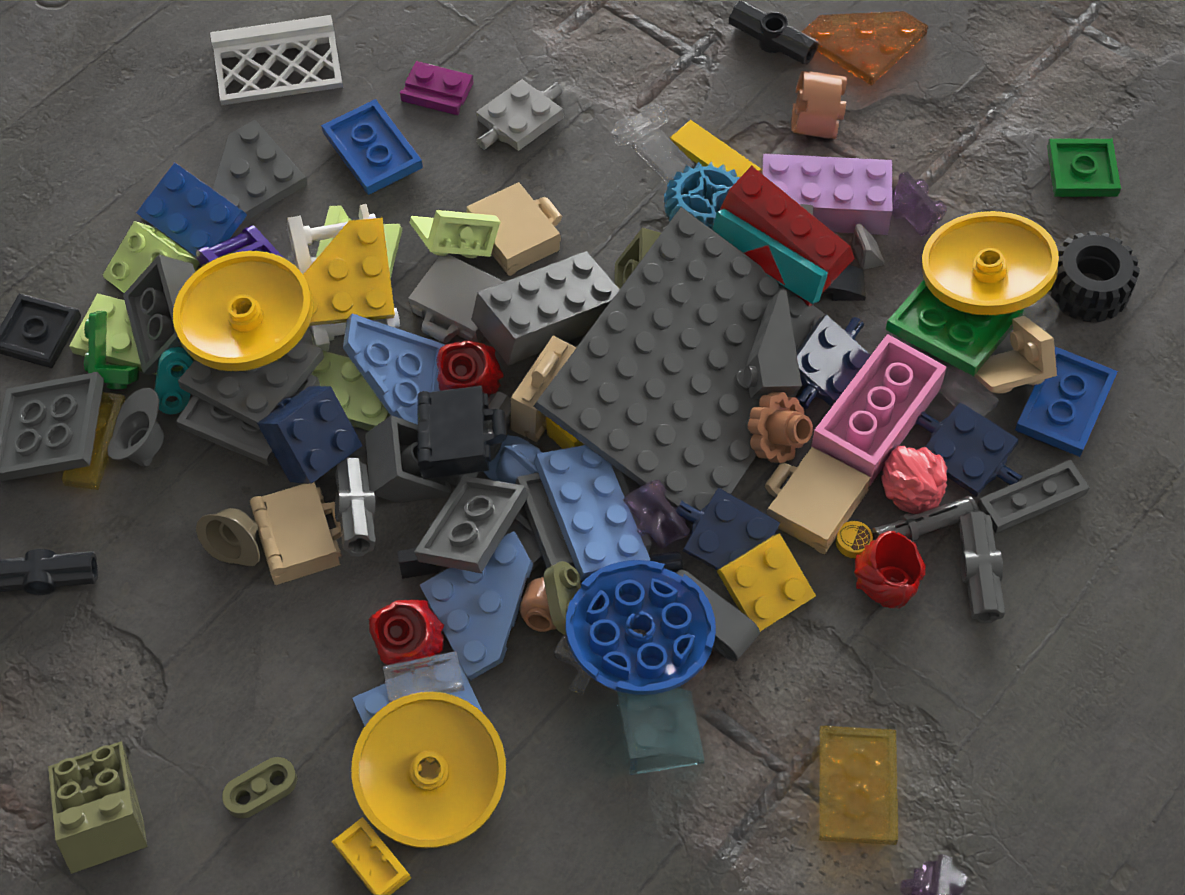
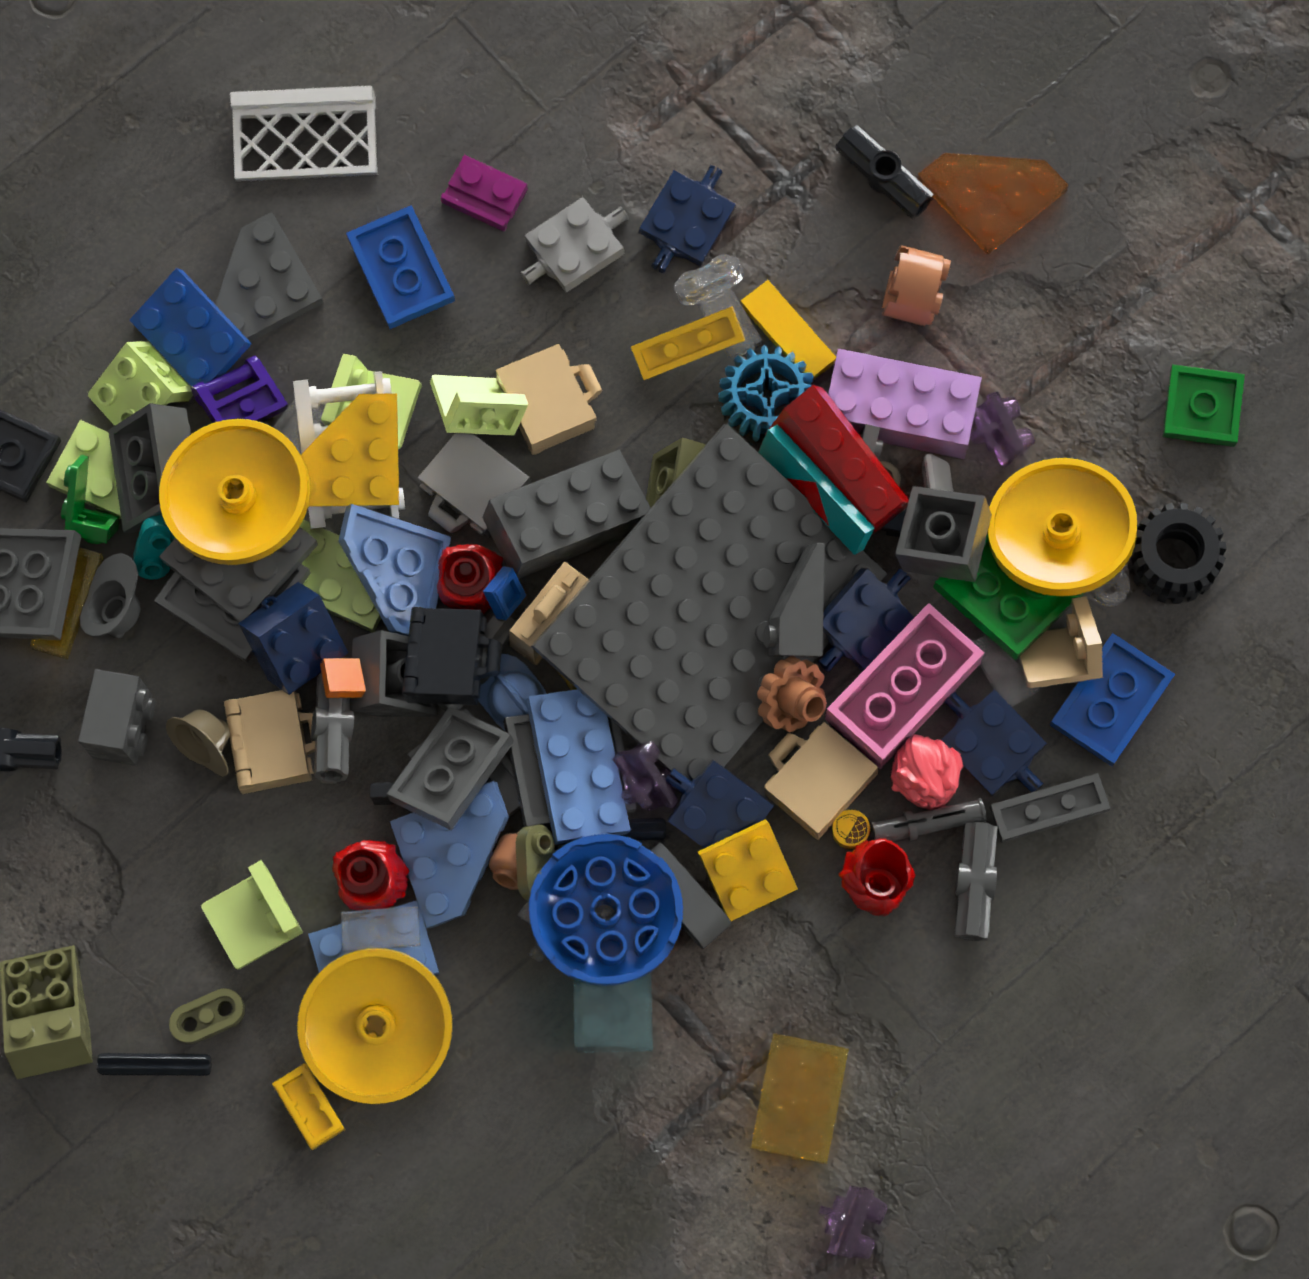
camera: 10 degrees right, 15 degrees up
(148, 525) = (116, 717): none -> dark grey brick
(210, 841) = (154, 1064): none -> black axle
(297, 688) = (251, 917): none -> yellowish green bracket
(360, 461) = (342, 678): none -> tile
(501, 373) = (504, 593): none -> blue tile
(612, 85) = (687, 218): none -> dark blue plate
(631, 170) = (688, 343): none -> yellow plate
(888, 276) = (943, 533): none -> dark grey brick

